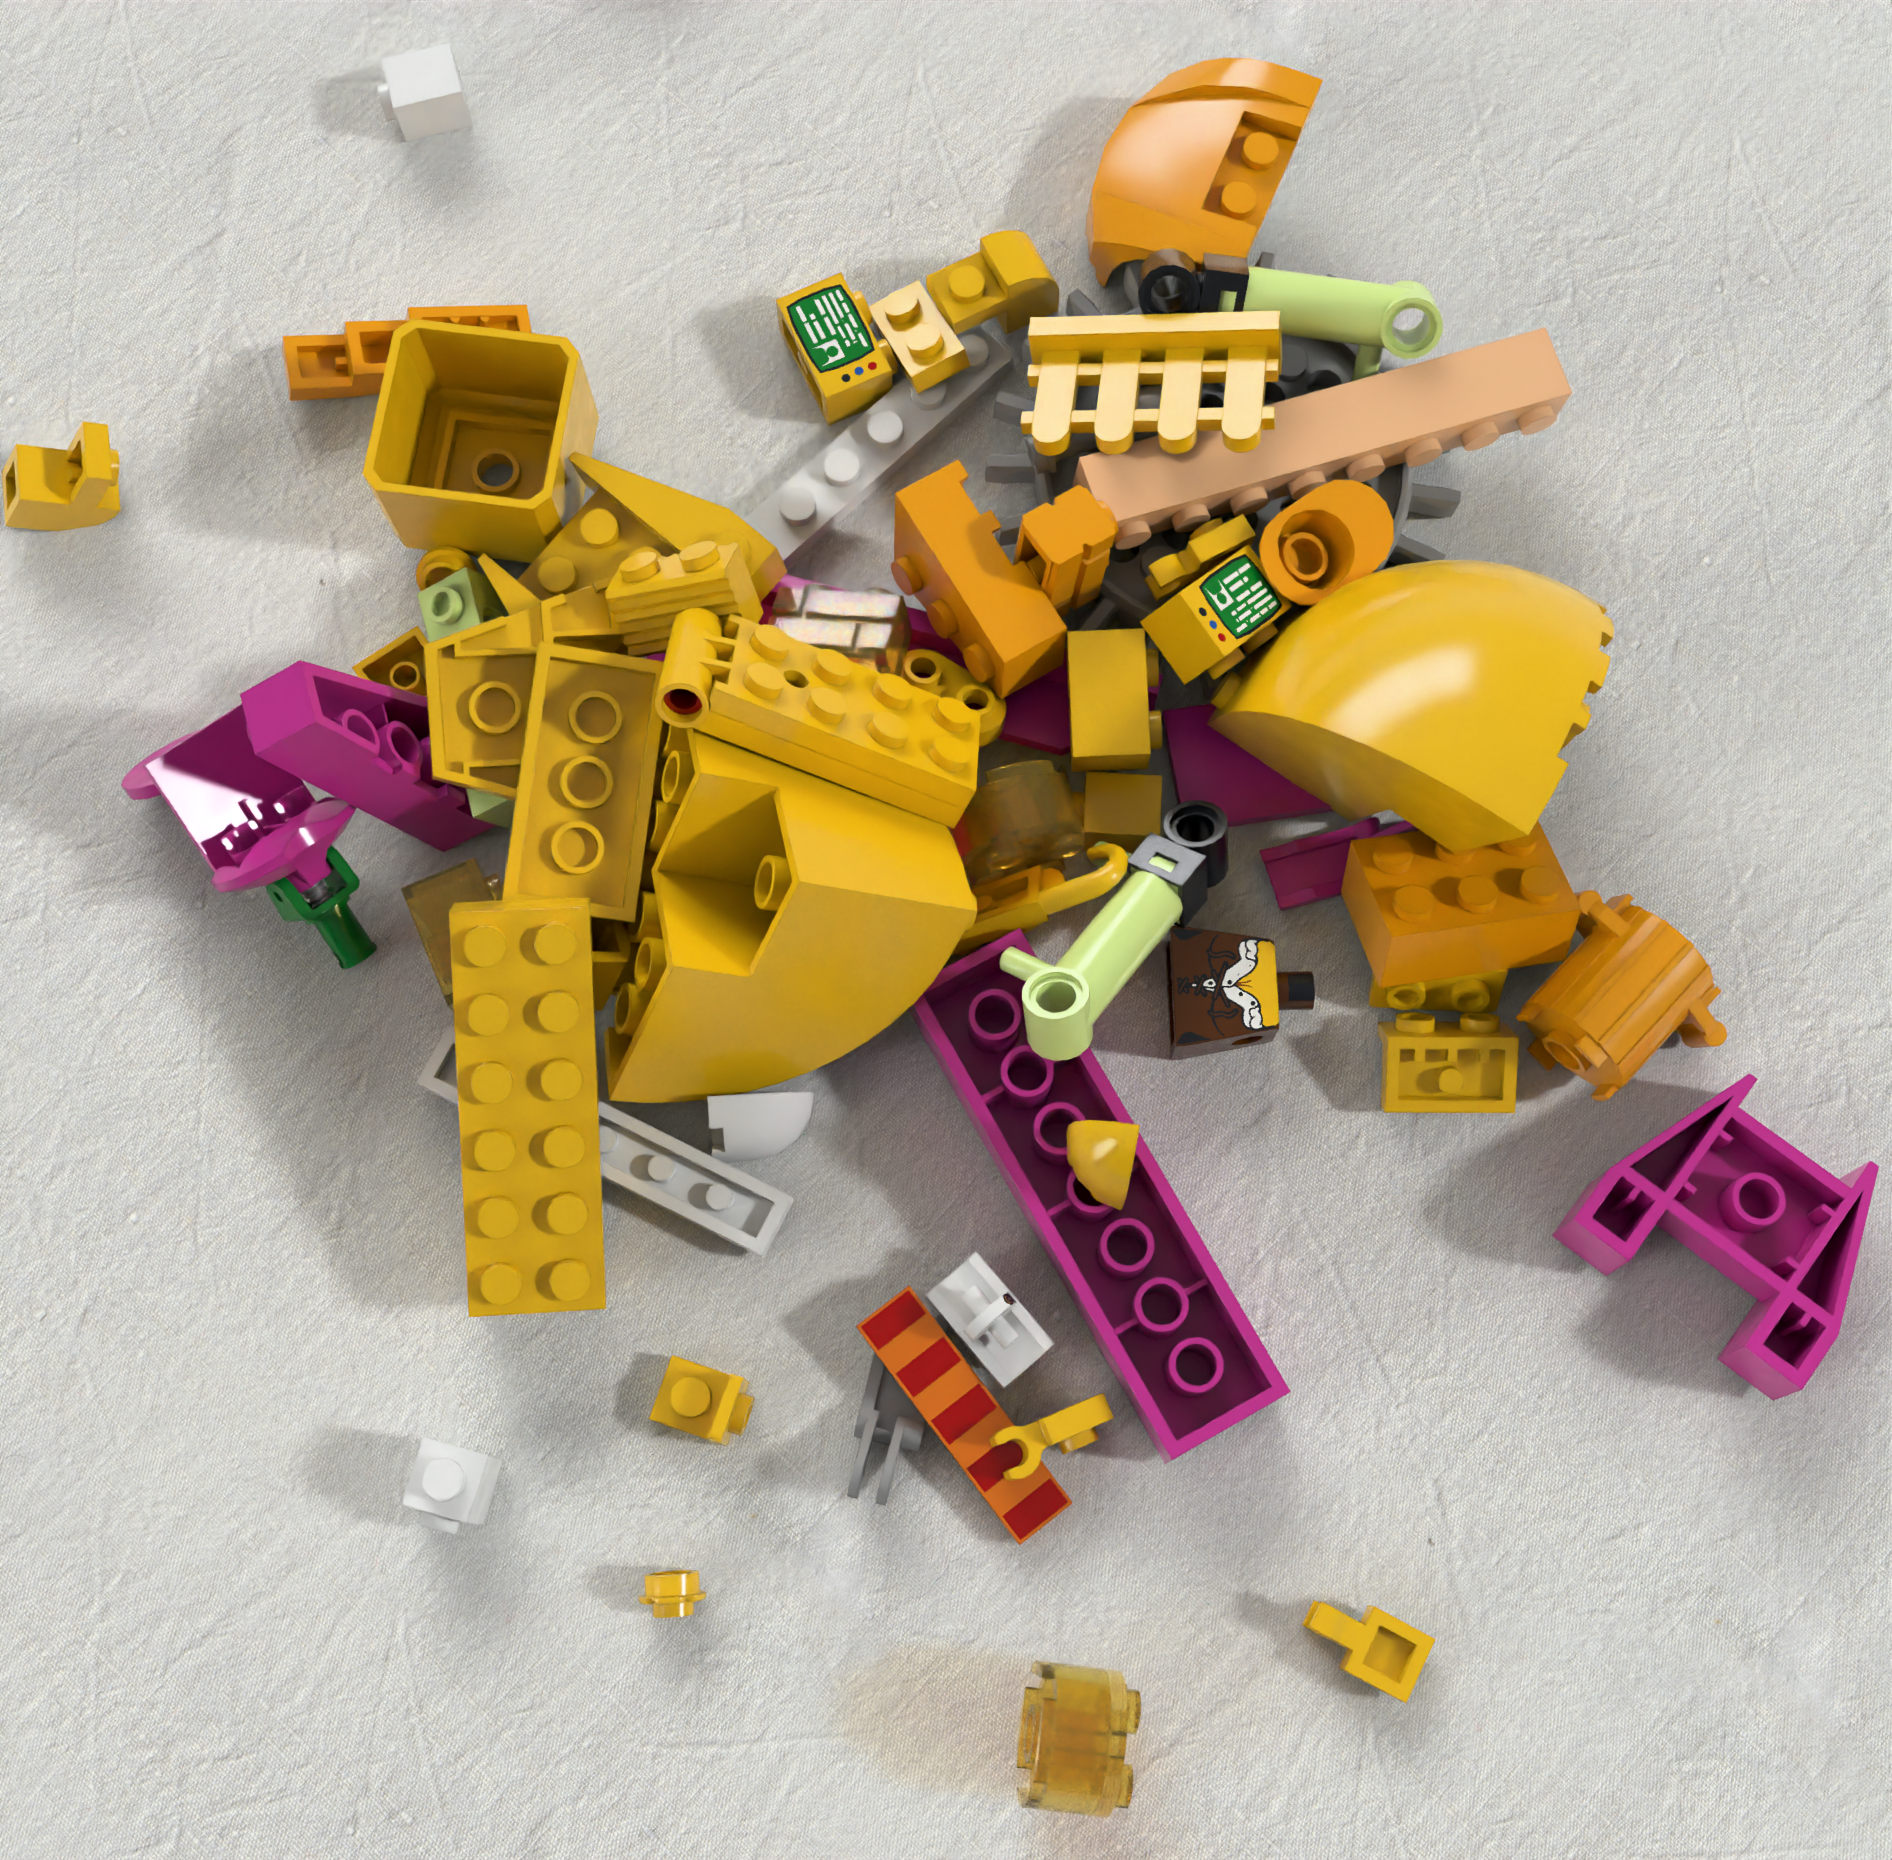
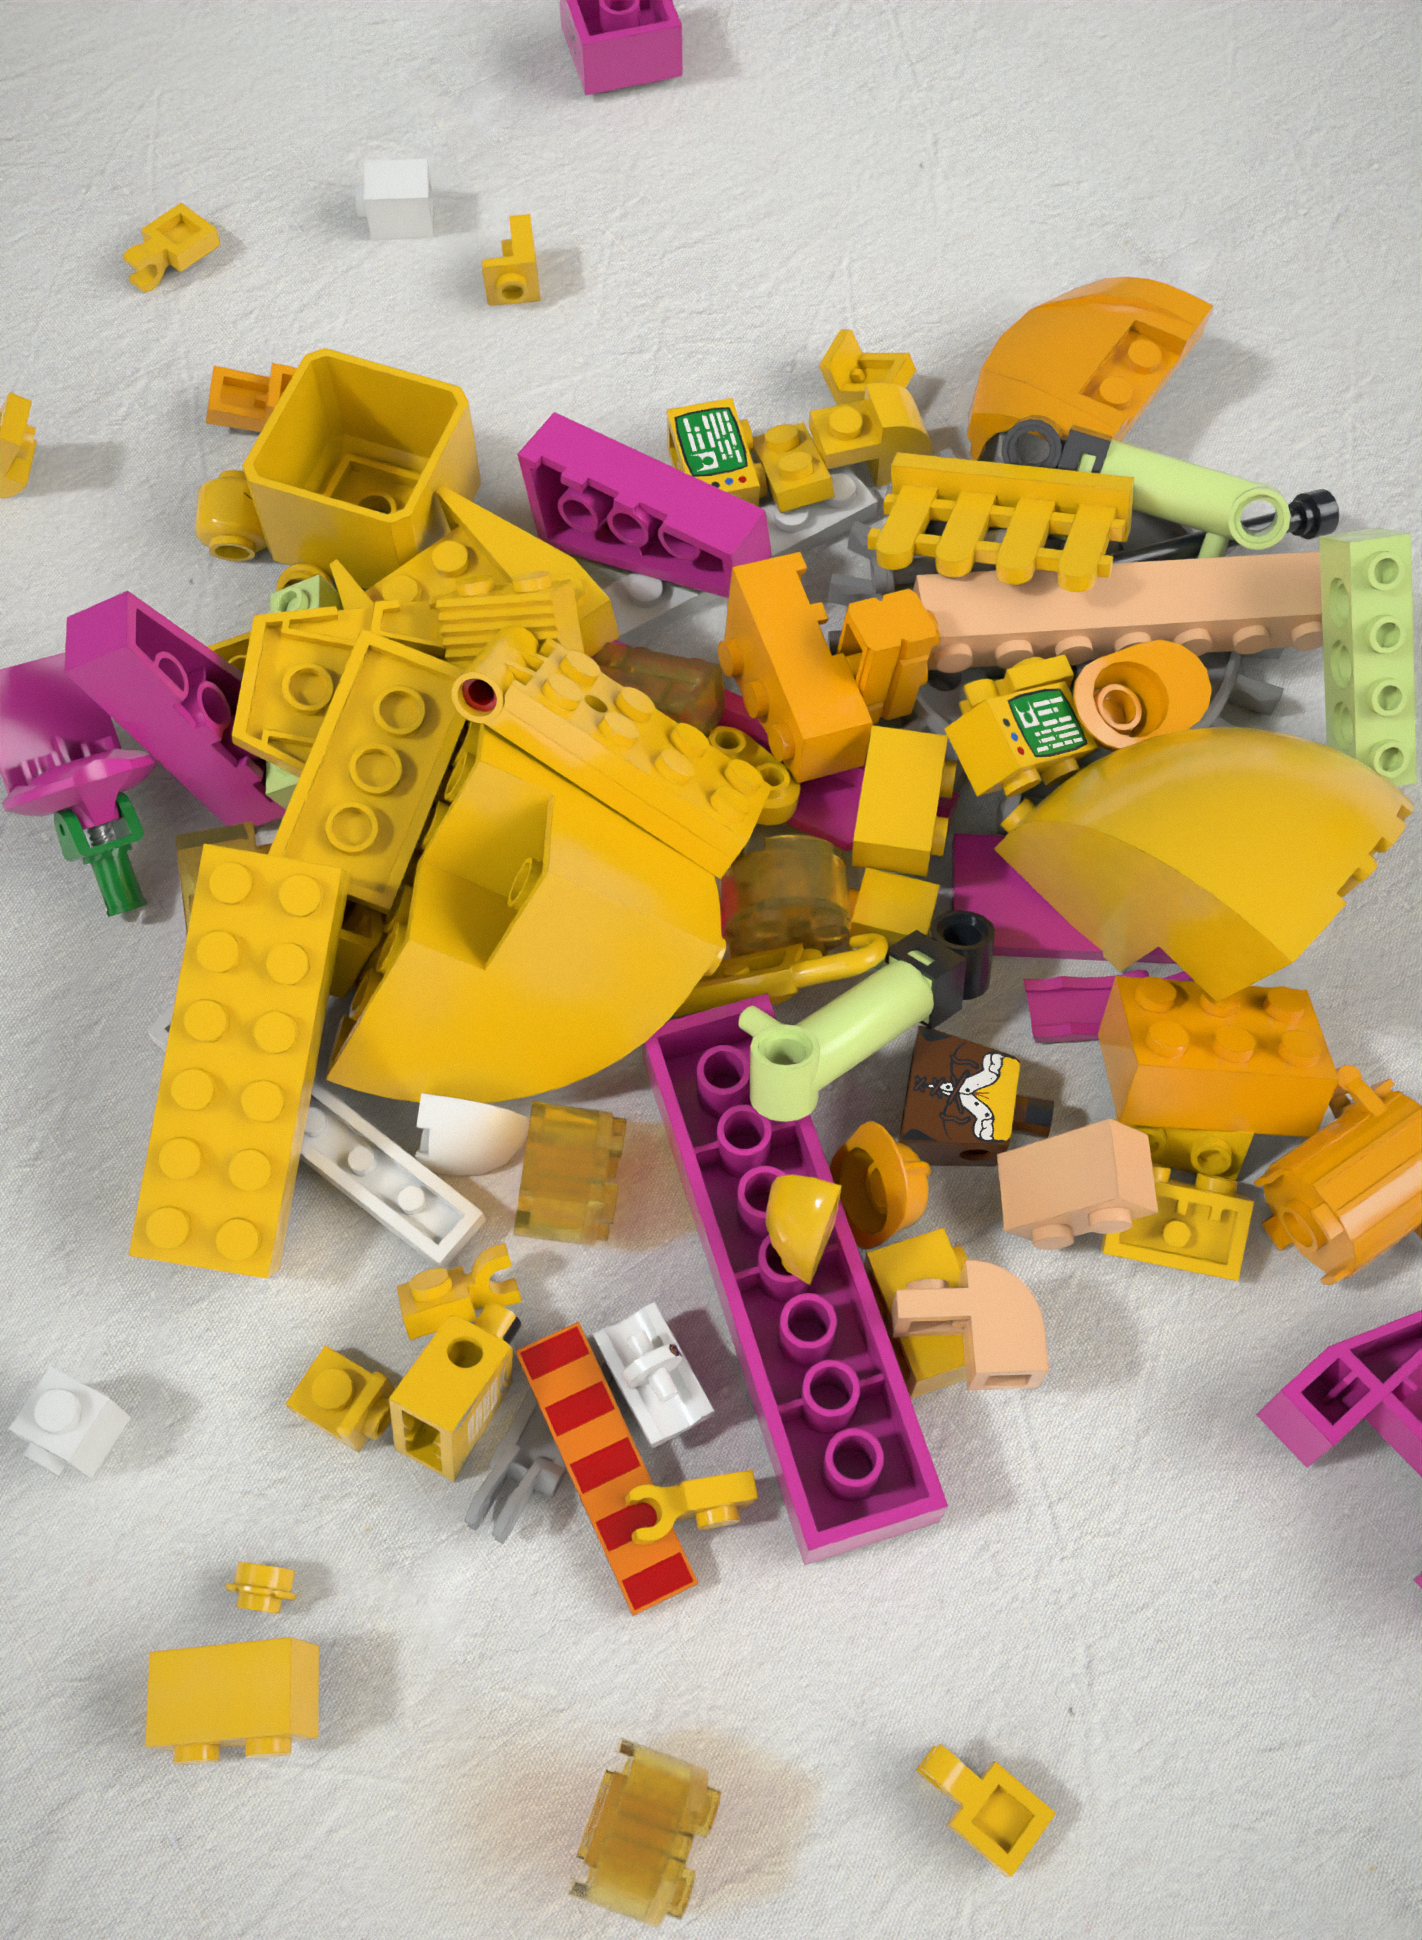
camera: 10 degrees right, 10 degrees down
(193, 187) = (172, 239): none -> yellow plate
(346, 508) = (228, 518): none -> yellow head
(577, 161) = (515, 275): none -> yellow bracket
(675, 1700) = (232, 1697): none -> yellow brick
(776, 428) = (635, 510): none -> dark pink wedge
(778, 1285) = (443, 1292): none -> yellow plate
(804, 1393) = (454, 1390): none -> yellow torso
(866, 1145) = (566, 1173): none -> clear yellow brick
(969, 212) = (849, 370): none -> yellow bracket
(1163, 1094) = (880, 1184): none -> light orange piece
(1235, 1203) = (924, 1360): none -> yellow brick
(1302, 1207) = (993, 1313): none -> light nougat brick
(1351, 1055) = (1077, 1184): none -> light nougat brick
(1455, 294) = (1311, 514): none -> black piece
(1542, 452) = (1370, 649): none -> yellowish green brick

